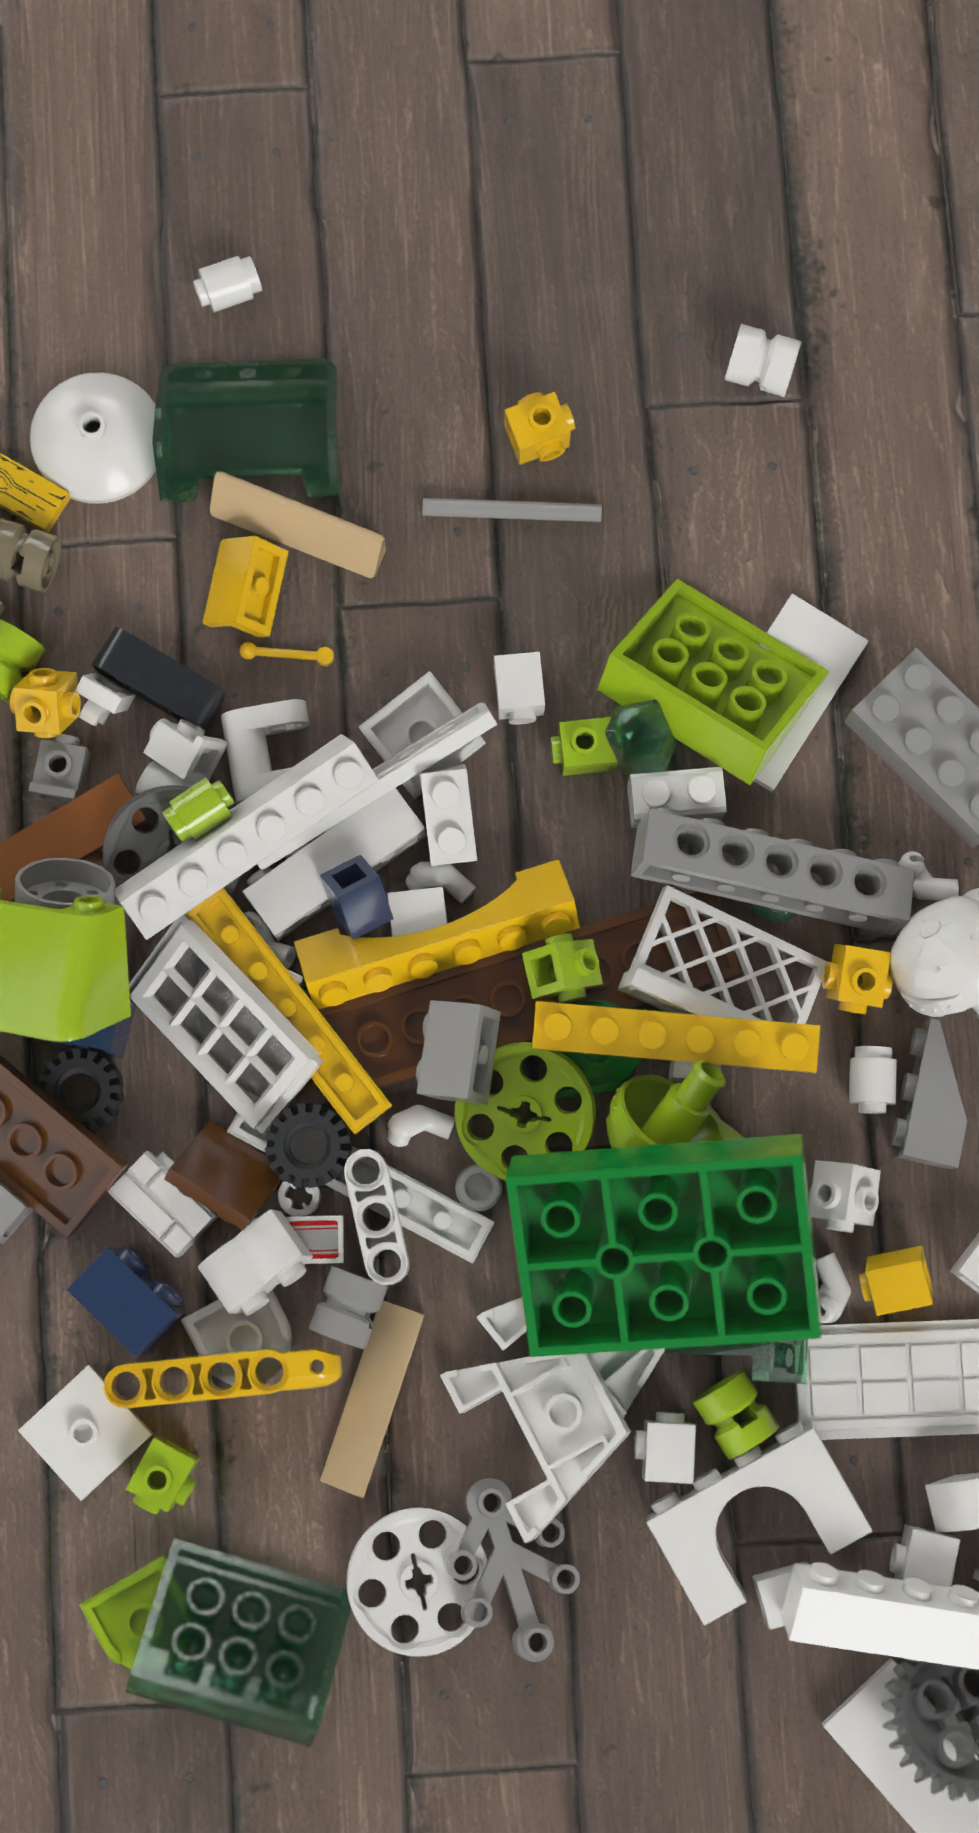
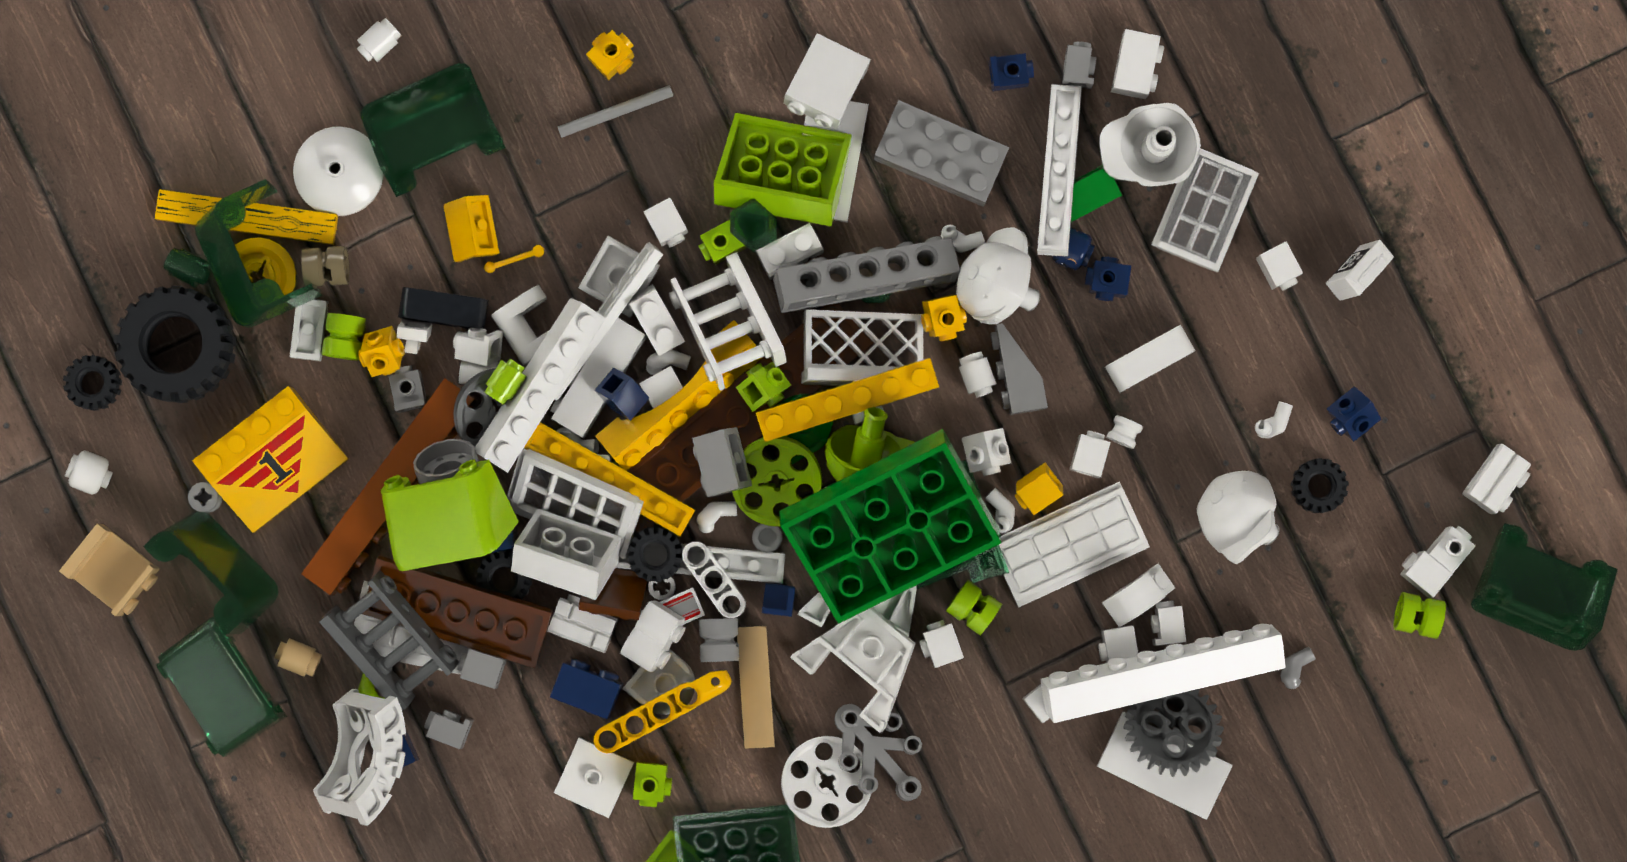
camera: 20 degrees left, 5 degrees up
(180, 1092) = (566, 554): none -> white brick
(296, 525) = (487, 177): tan slope -> none
(457, 1285) = (778, 599): none -> dark blue panel
(588, 836) = (745, 299): none -> white fence
(688, 1523) = (1021, 622): white arch -> none
(822, 584) = (826, 82): none -> white panel

